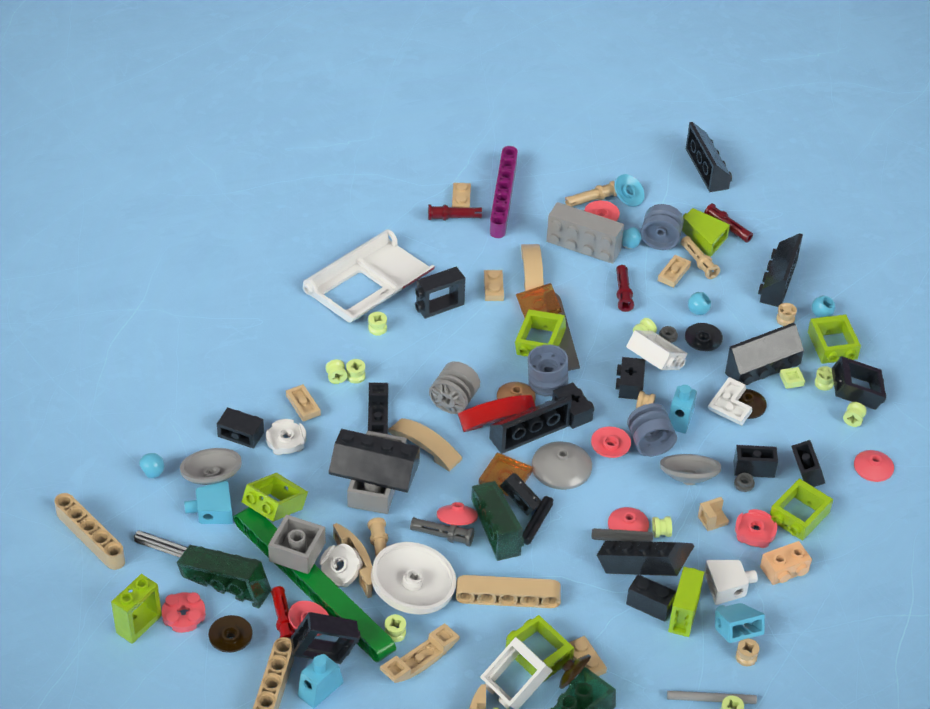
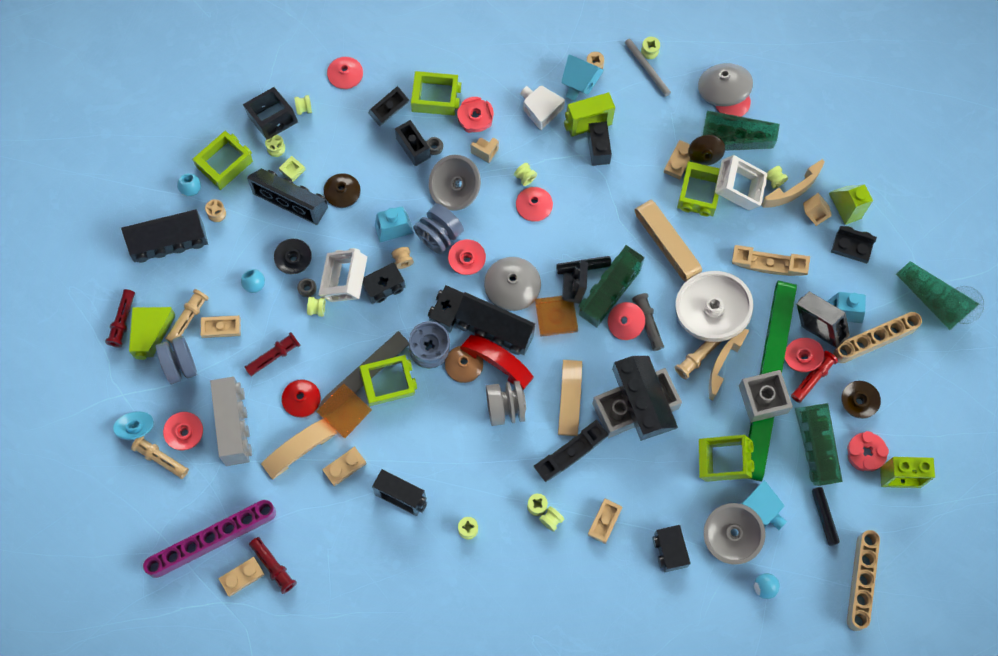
camera: 125 degrees left, 25 degrees up
(289, 445) = (650, 518): white plate -> none
(351, 567) = (735, 364): white plate -> none
(378, 260) = (387, 571): white piece -> none
(396, 634) = (758, 297): yellowish green wheel -> none
(573, 290) = (304, 406): none -> red dish
(621, 535) = (553, 197): dark grey axle -> none
(631, 238) = (201, 385): medium azure piece -> none
(644, 557) = (572, 158): black slope -> none
(707, 159) = (40, 382): black slope -> none
(727, 404) = (358, 200): white plate -> none
(785, 563) = (496, 77): light nougat brick -> none

